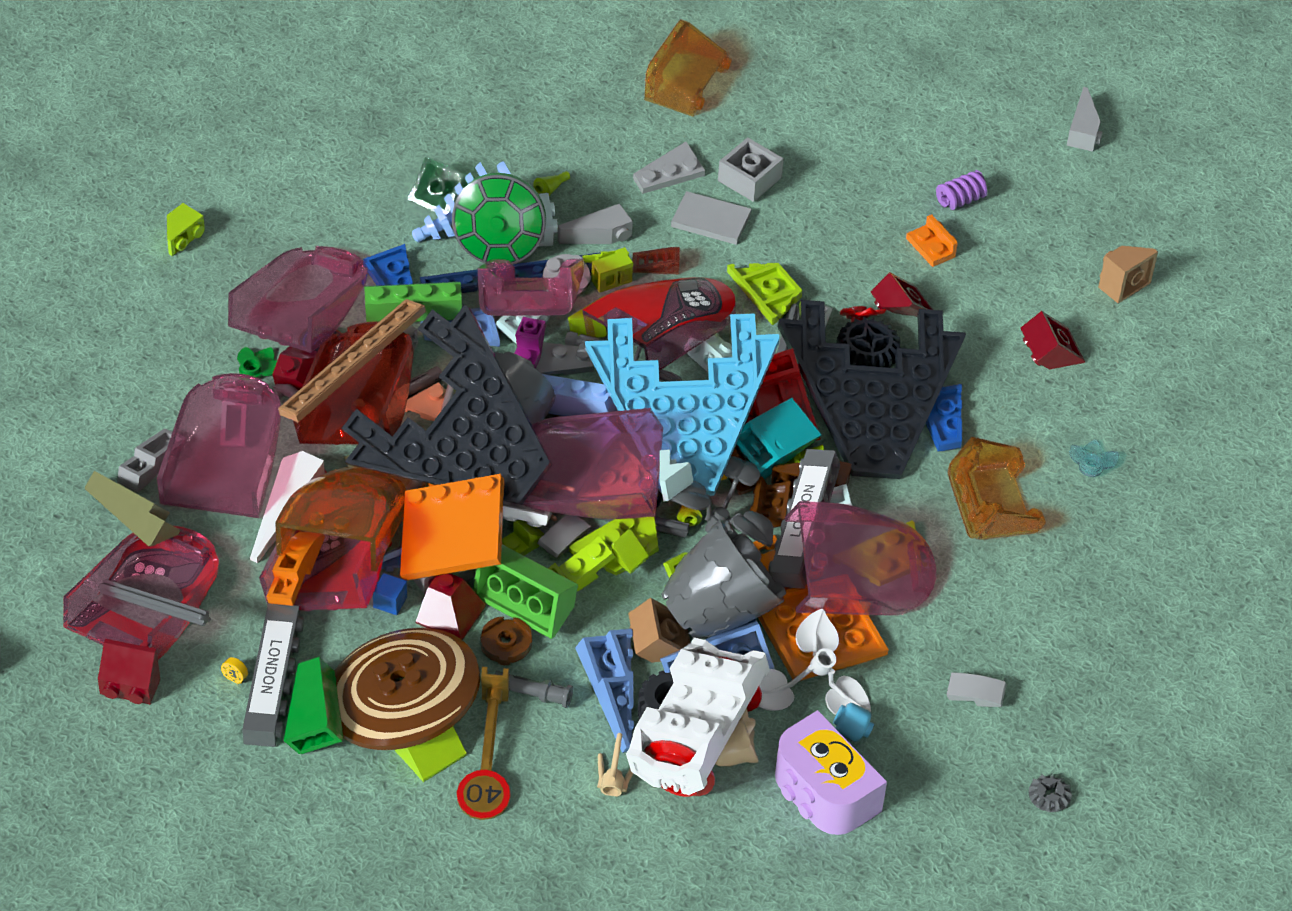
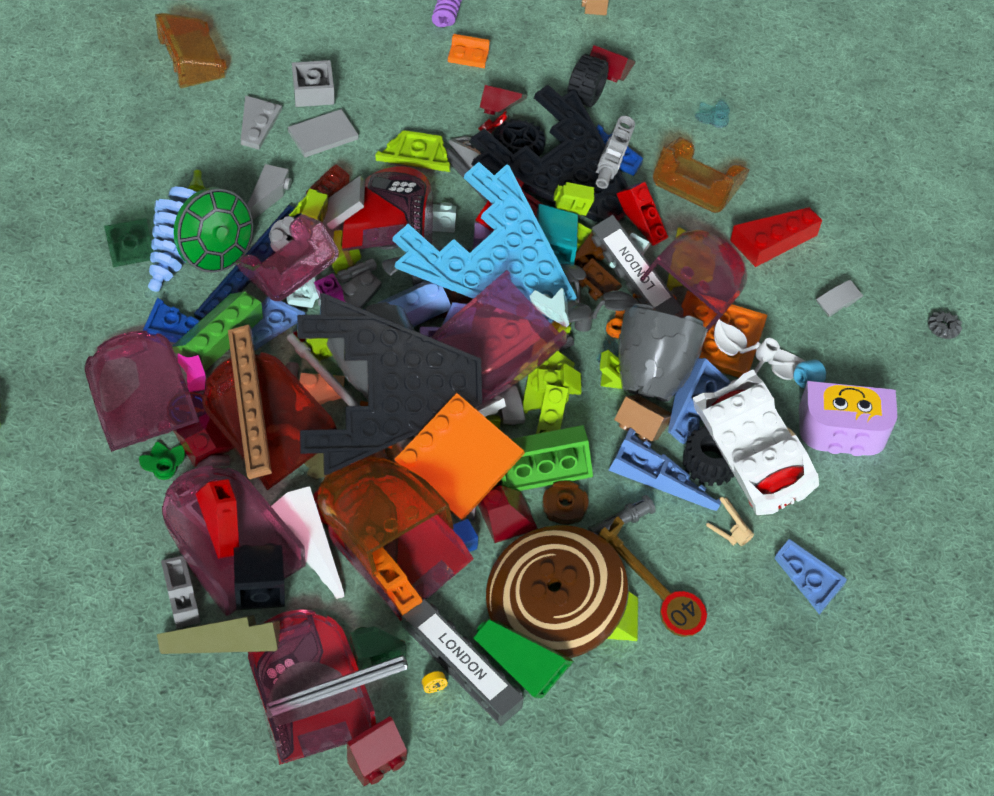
camera: 50 degrees left, 5 degrees up
(206, 490) = (259, 577): none -> black slope
(213, 595) = (374, 646): none -> clear green slope
(229, 427) = (220, 515): none -> red slope
(350, 314) = (194, 371): none -> dark pink slope
(624, 860) = (810, 575): none -> medium blue wing
(639, 279) = (345, 202): none -> light grey tile
(831, 417) = (574, 198): none -> lime piece
(890, 480) = (642, 212): none -> red slope
(904, 409) = (614, 151): none -> light grey piece
(993, 594) = (774, 235): none -> red wedge
(996, 337) = (589, 79): none -> black tyre

